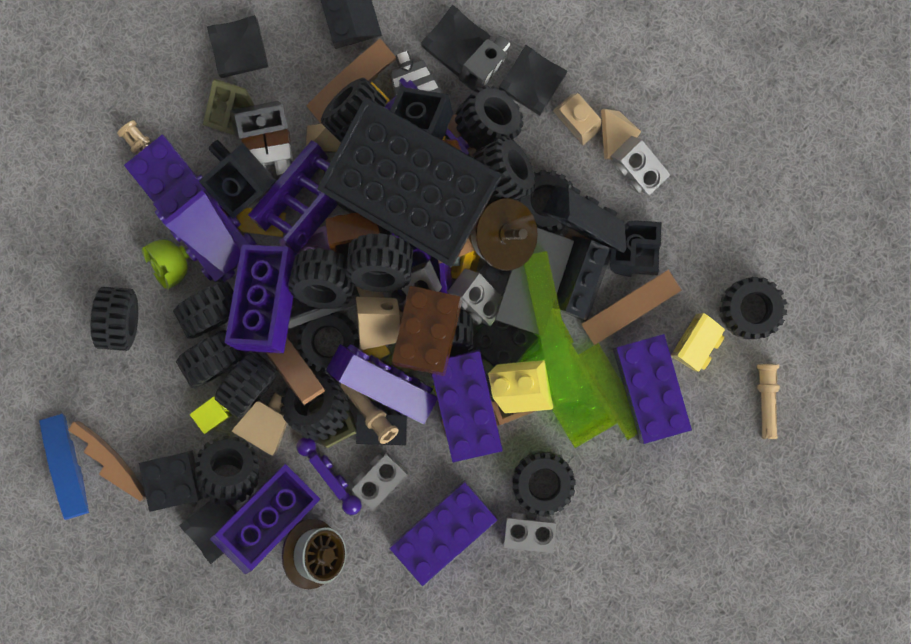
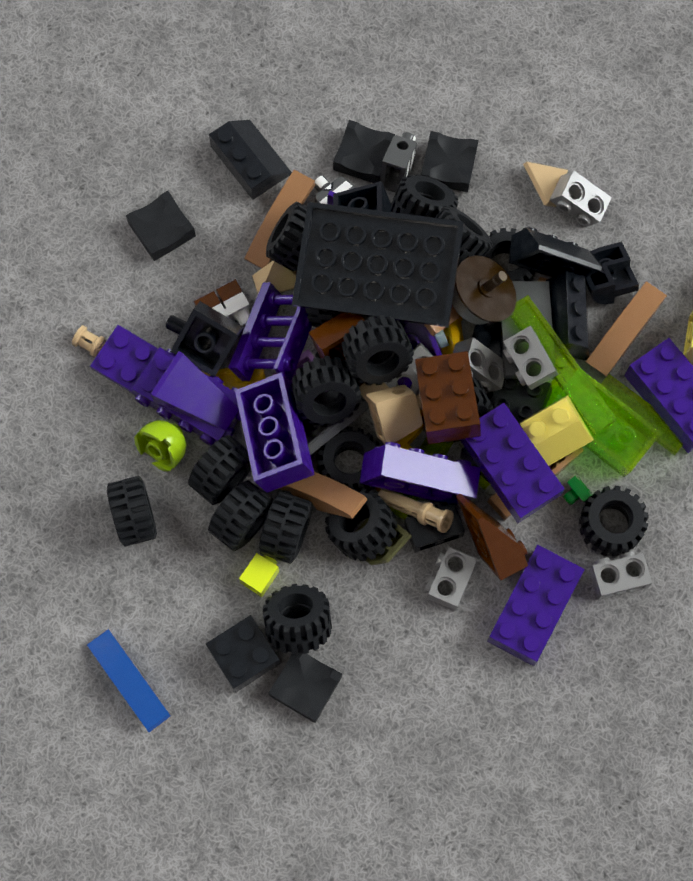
camera: 20 degrees left, 15 degrees down
(114, 467) = (180, 663): medium nougat slope -> none
(221, 100) = (171, 283): olive slope -> none
(258, 119) = (205, 280): black brick -> none
(263, 425) = (316, 564): tan torso -> none
(265, 519) = (353, 651): dark purple brick -> none
(313, 554) = (416, 670): dark brown piece -> none
(350, 504) = (410, 596): dark purple plate -> none
(427, 464) = (492, 541): none -> reddish brown slope
(525, 442) = (578, 491): none -> green tile
(529, 314) = (535, 355): none -> light grey brick
(578, 118) = (506, 178): tan torso -> none

